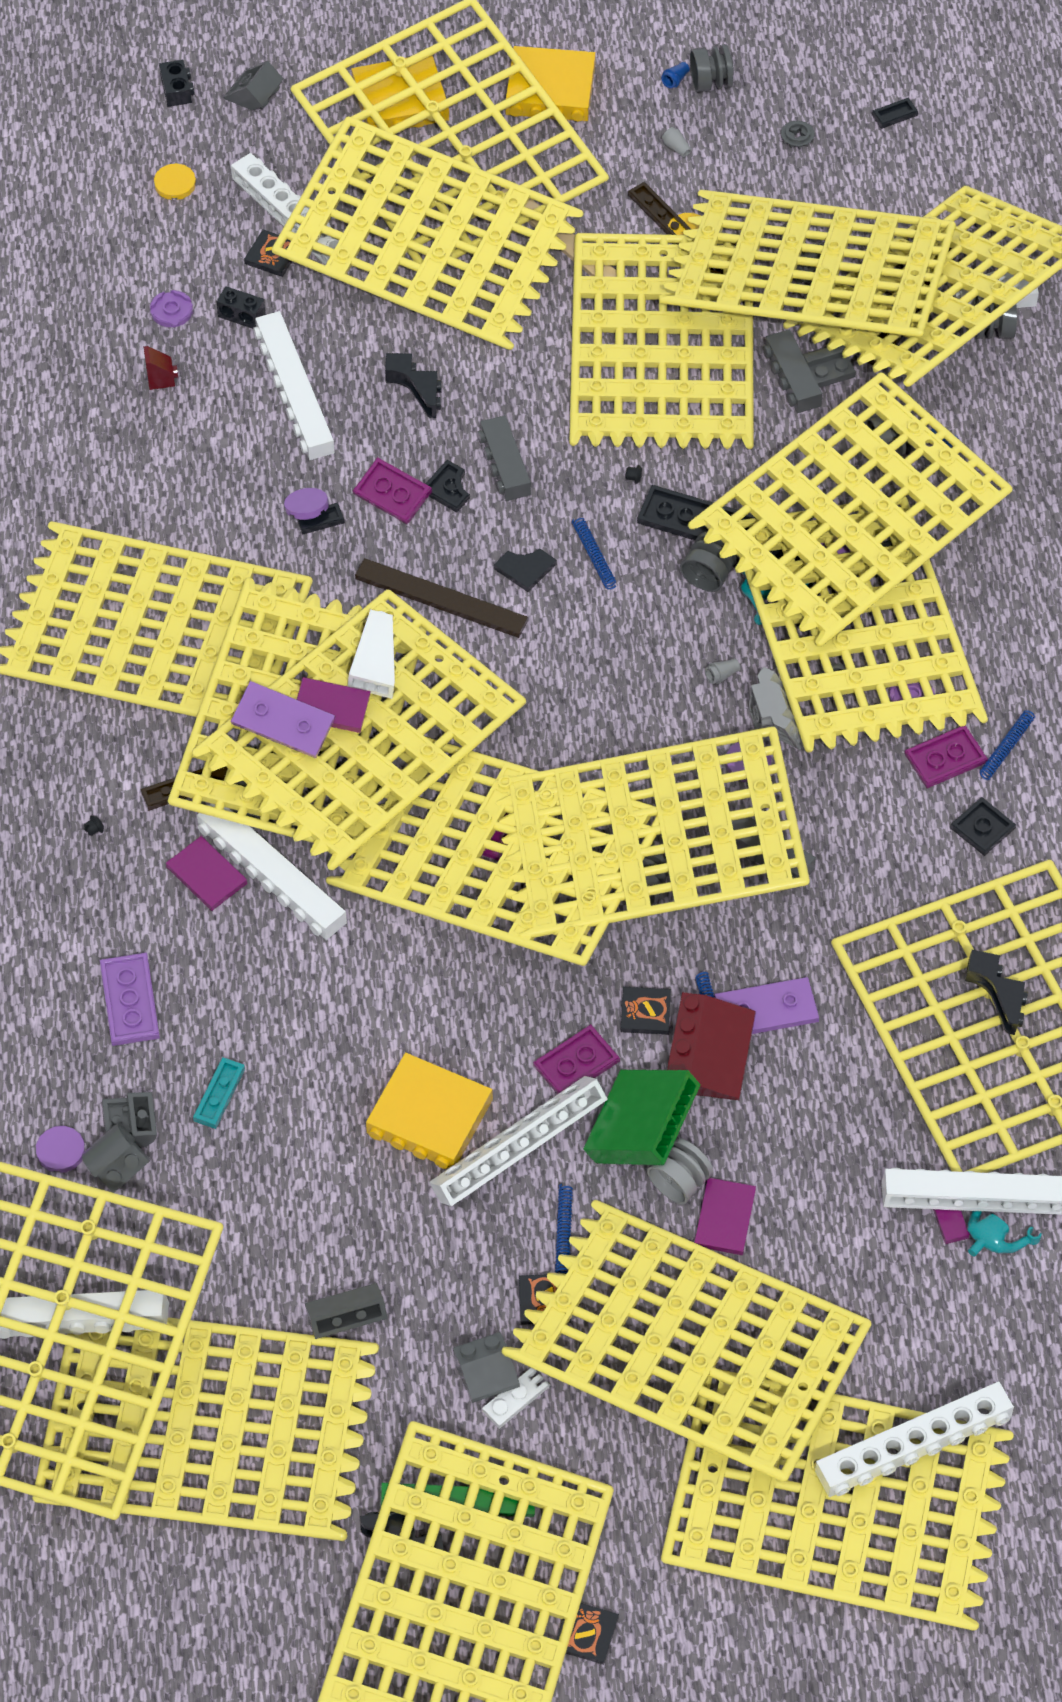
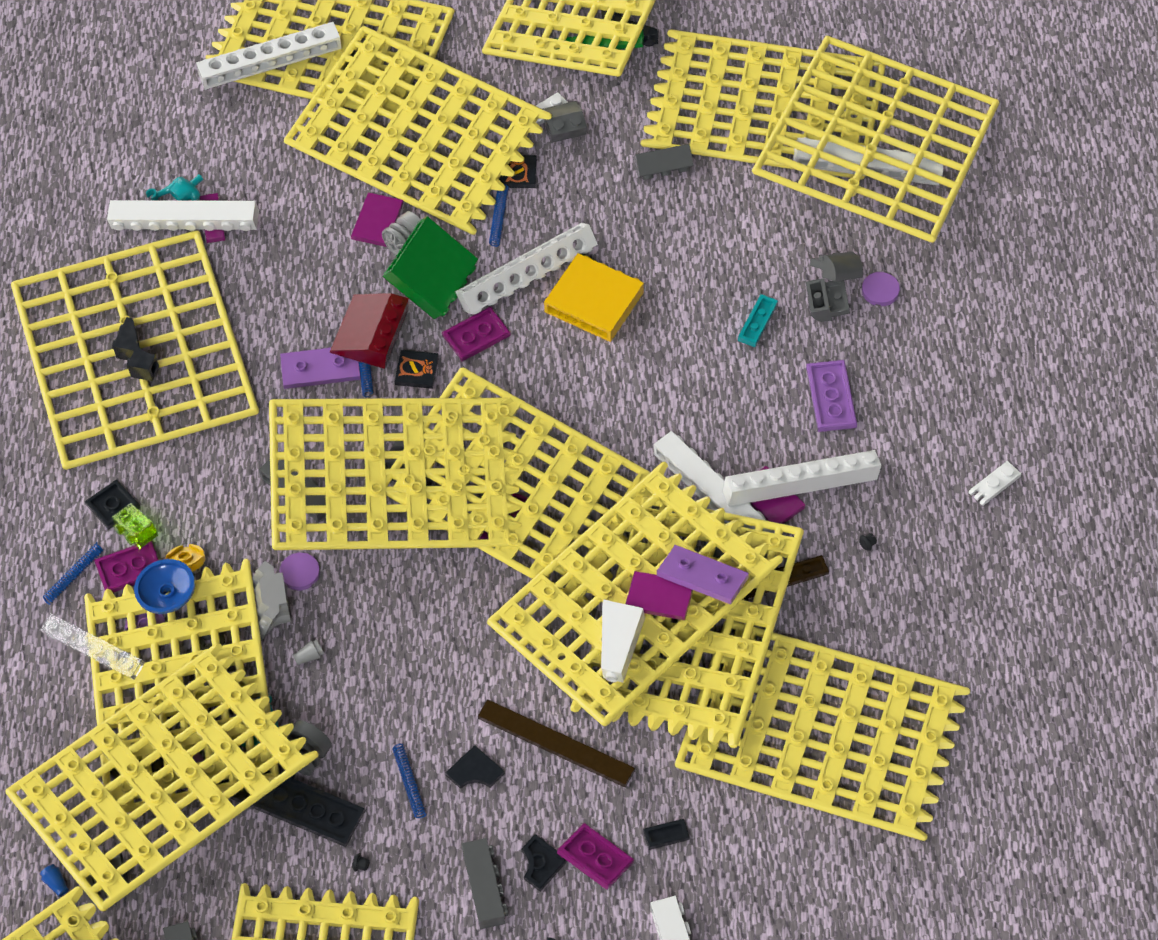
camera: 175 degrees left, 0 degrees up
(167, 875) = (801, 478): none -> white brick
(306, 503) = (678, 843): medium lavender tile -> none
(881, 760) = (192, 556): none -> yellow tile
(894, 690) = (164, 577): none -> blue dish
(948, 789) = (134, 526): none -> clear neon green brick
(963, 655) = (92, 646): none -> clear plate

